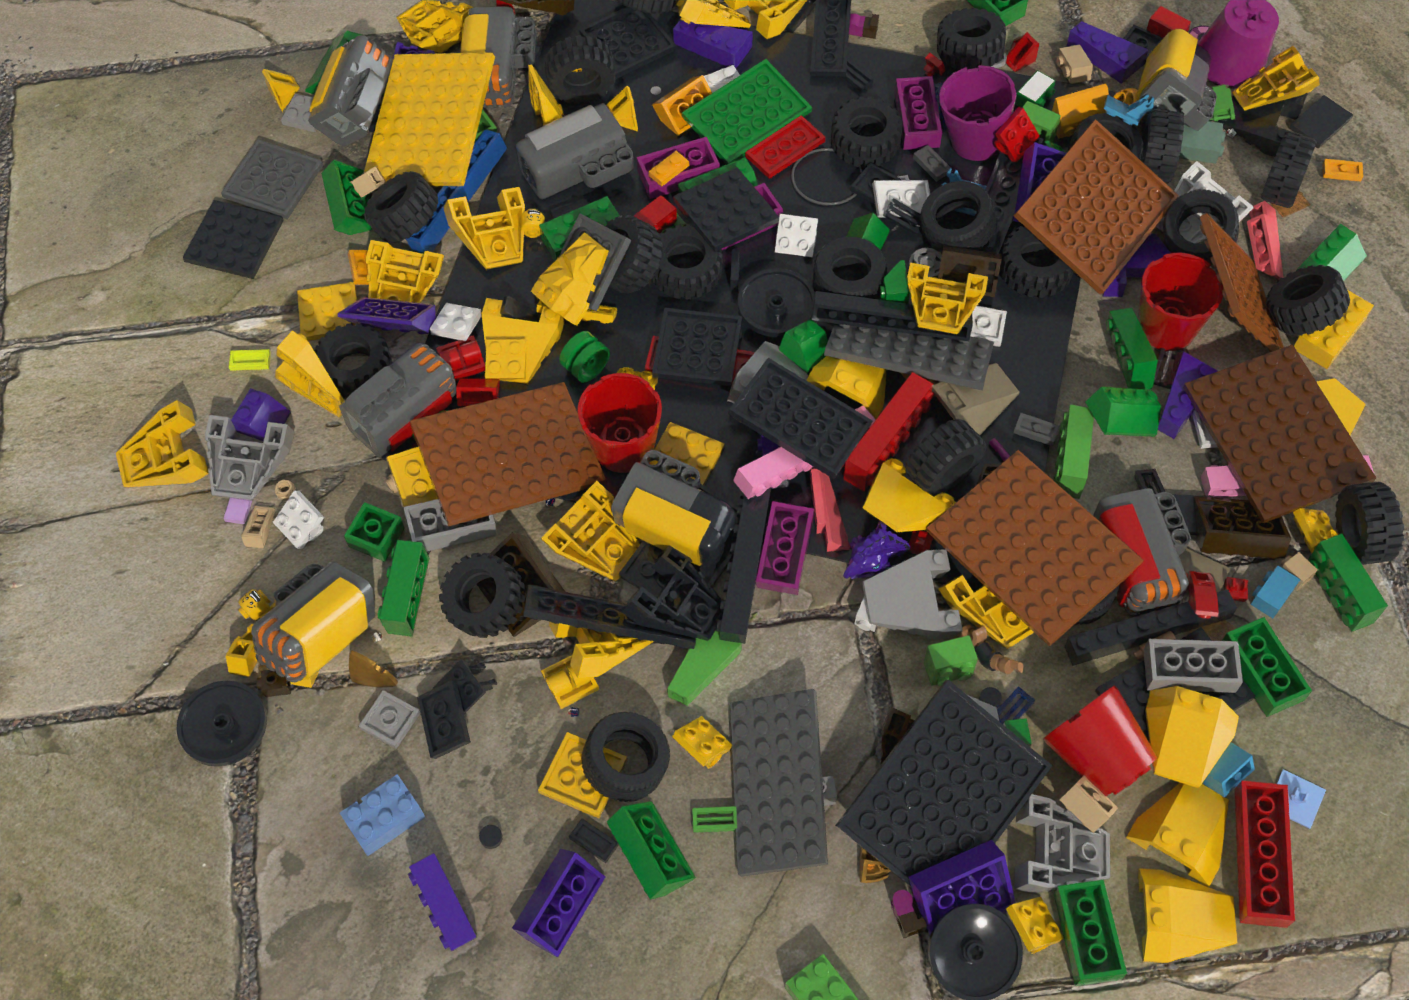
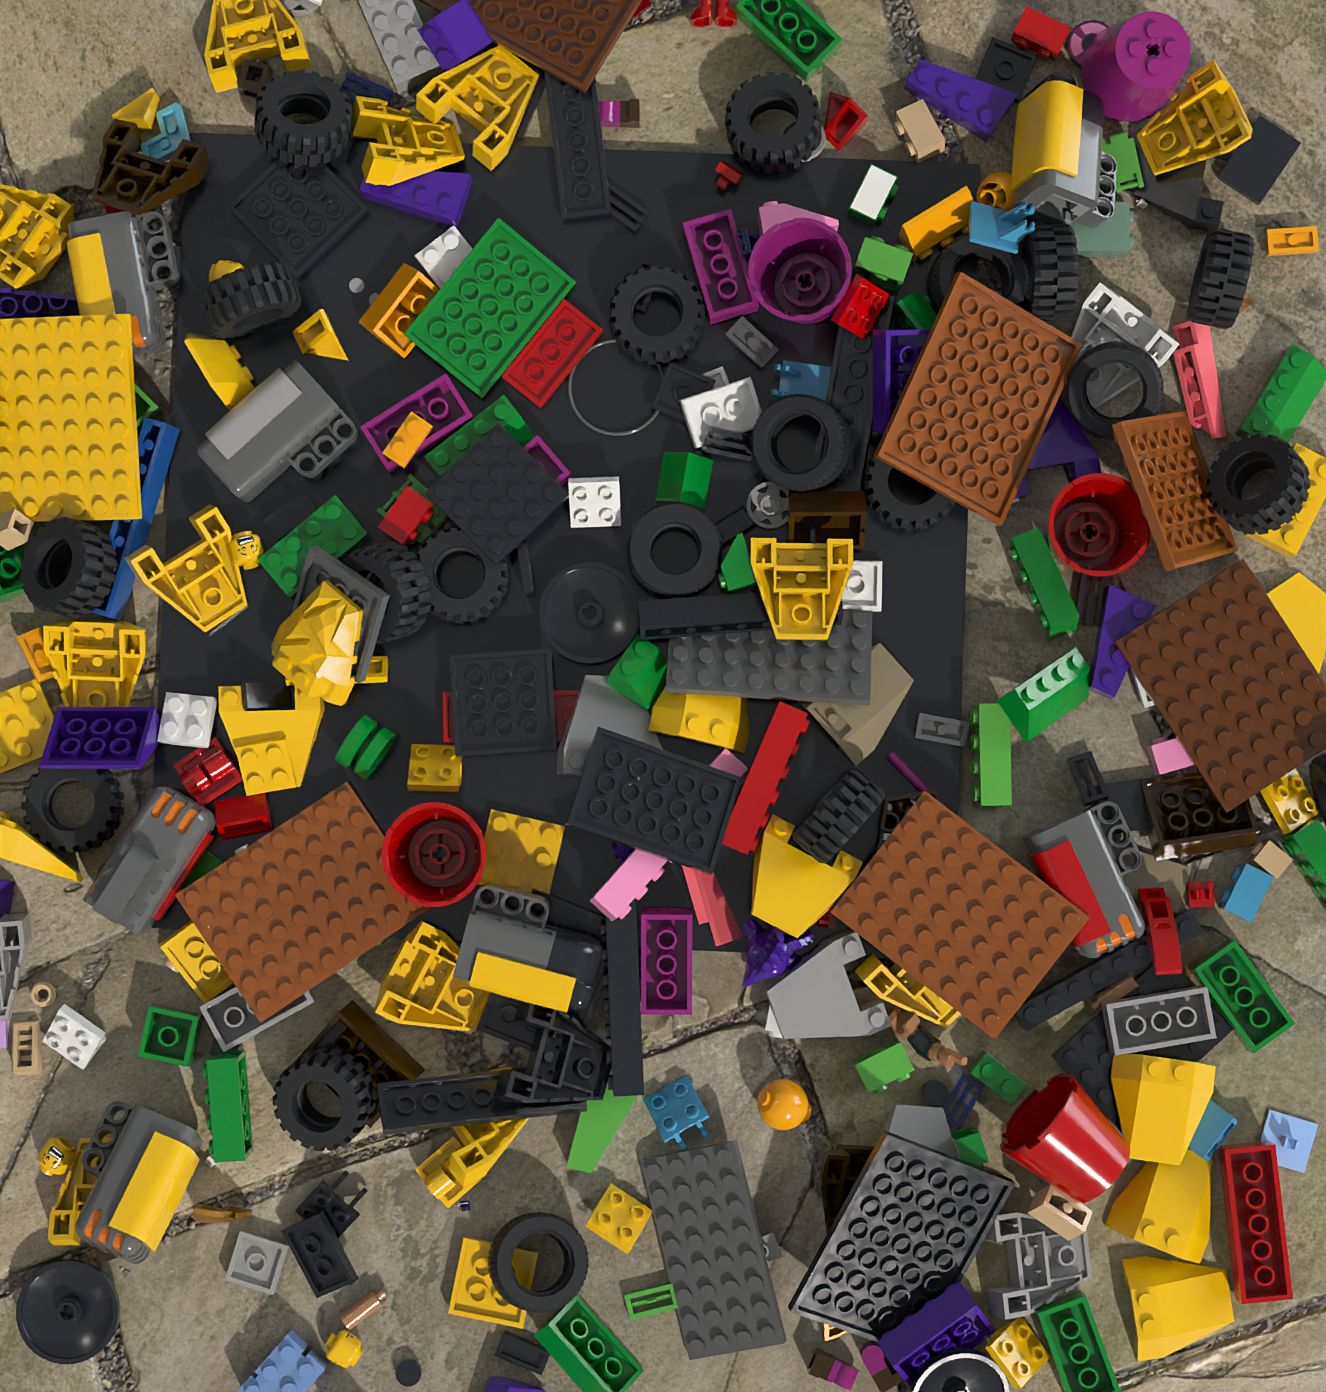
camera: 10 degrees left, 25 degrees up
(441, 802) = (343, 1348): none -> yellow head
(467, 774) = (363, 1308): none -> medium nougat cylinder
(770, 665) = (676, 1110): none -> dark azure plate
(860, 676) = (783, 1104): none -> light orange brick
(864, 908) = (832, 1369): none -> leg
(1047, 692) = (997, 1077): none -> green brick

